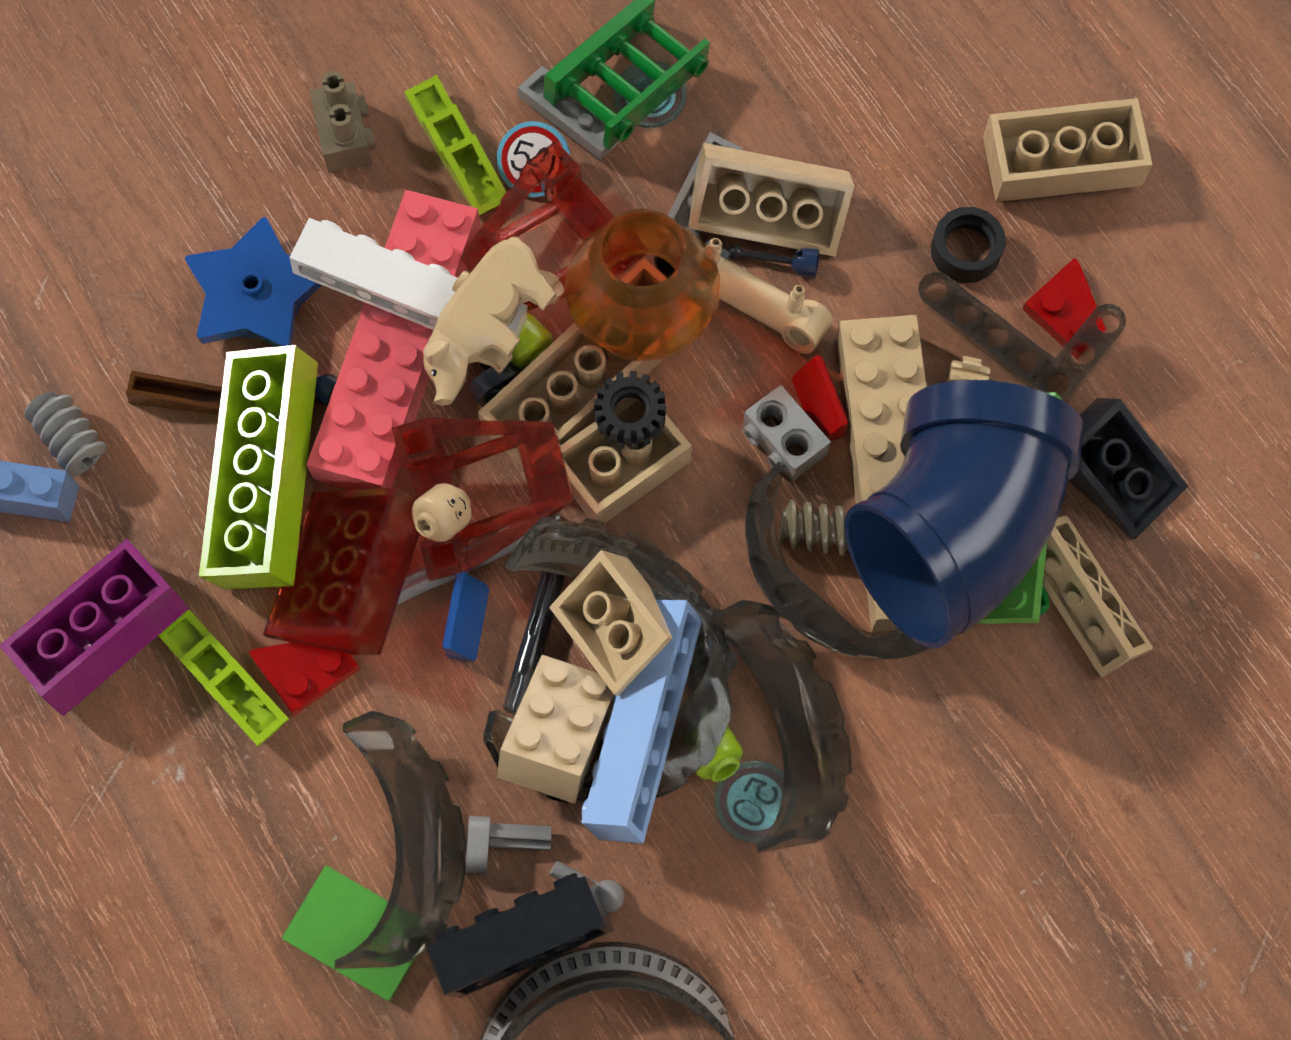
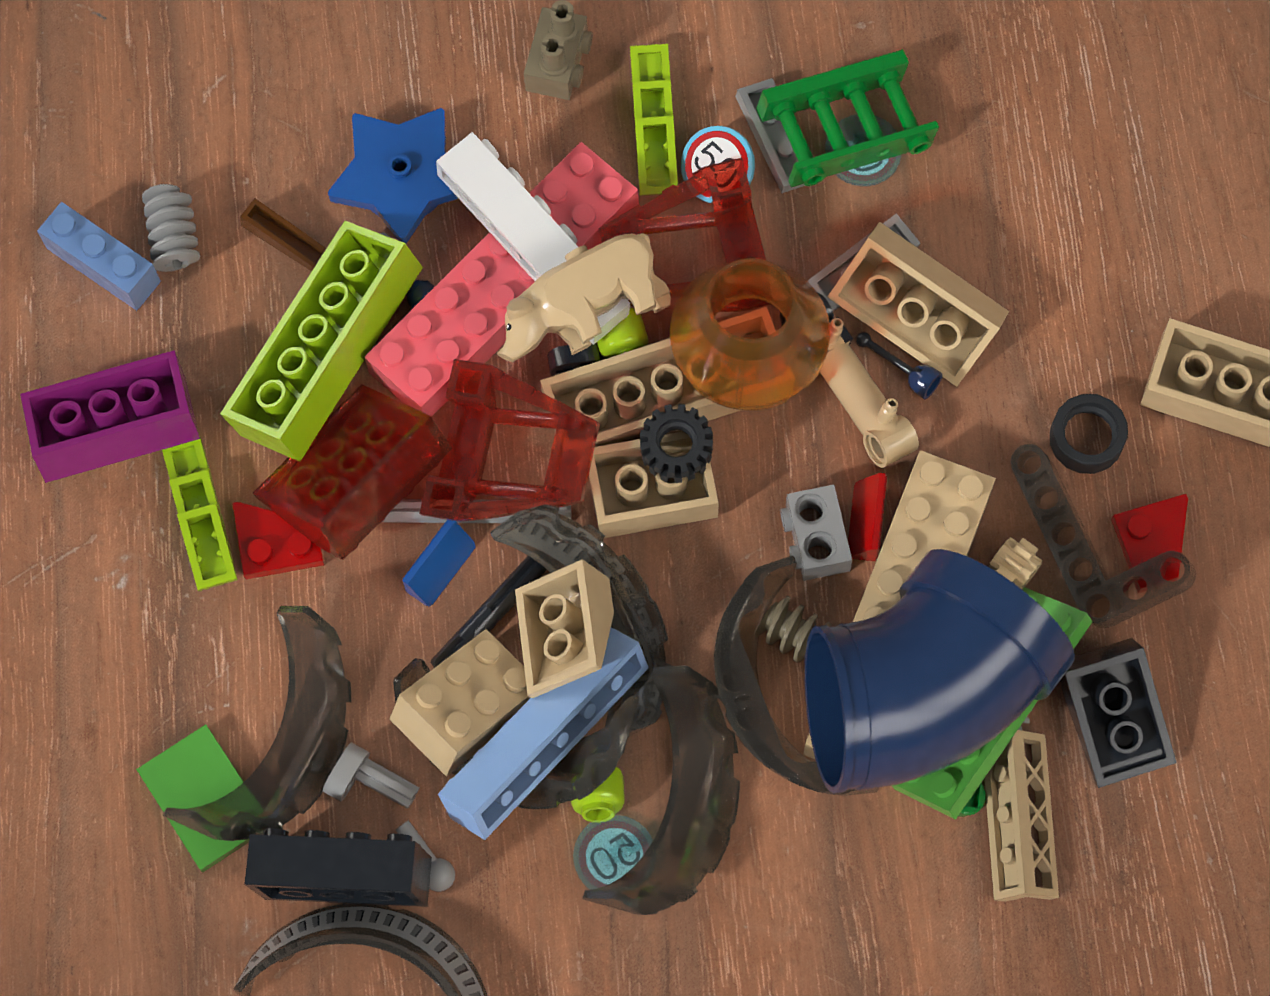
camera: 30 degrees right, 0 degrees up
(441, 512) = (461, 457): tan head -> none

